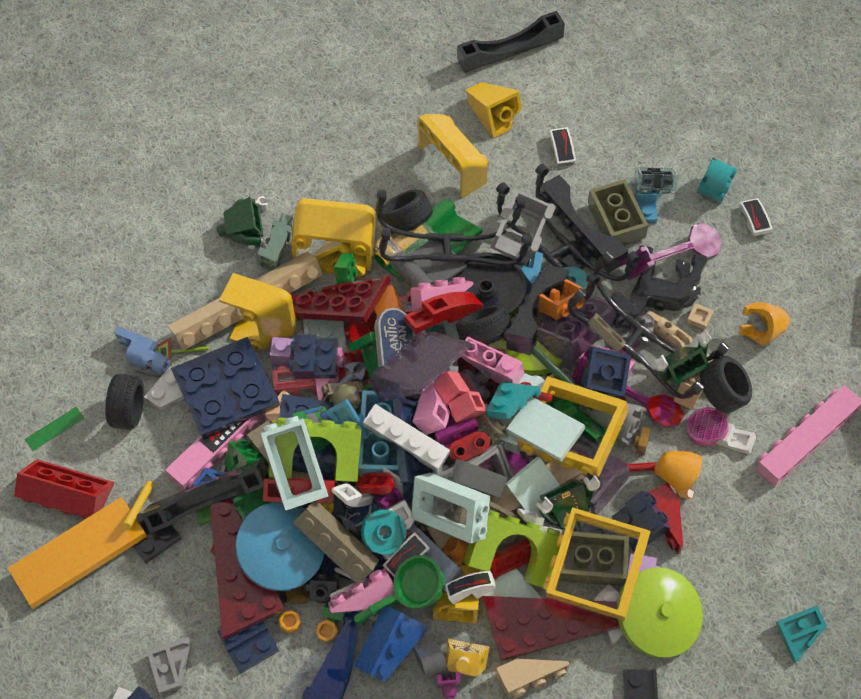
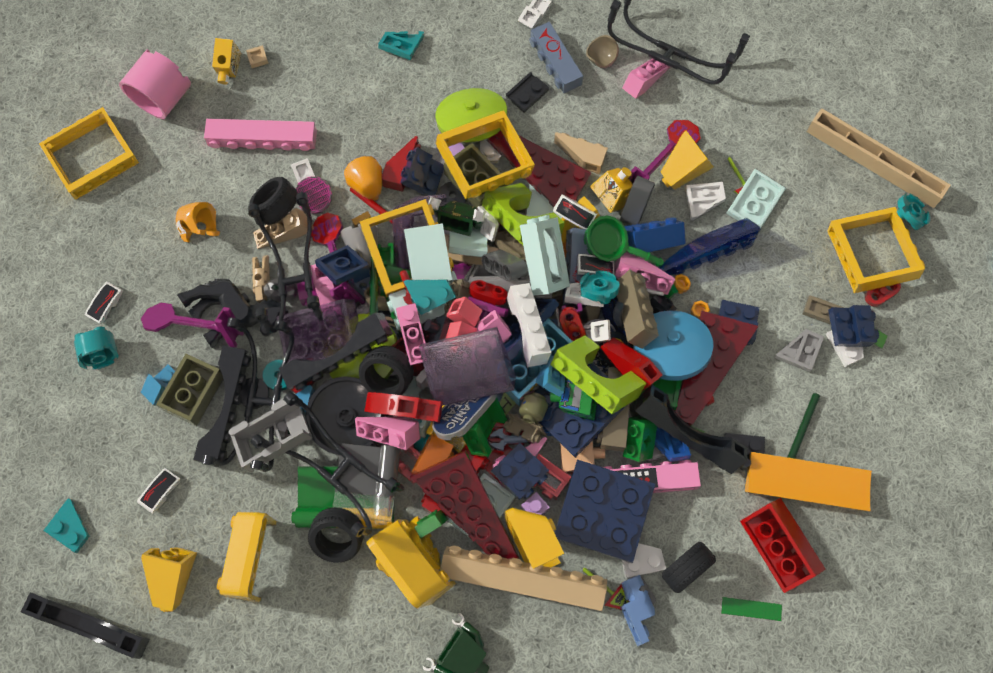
camera: 135 degrees left, 10 degrees up
(117, 599) = (803, 426): none -> dark green bar
(138, 505) = (739, 478): yellow bar -> none
(279, 235) = (458, 599): sand green hips -> none
(318, 488) = (634, 344): light aqua piece -> none
(557, 304) = (296, 345): orange window -> none
(593, 80) = (68, 527): none -> teal wing
(611, 338) = (313, 284): dark tan plate -> none
(651, 179) = (133, 389): clear light blue piece -> none
(684, 362) = (284, 233): dark green torso -> none
(700, 316) = (228, 268): tan plate -> none

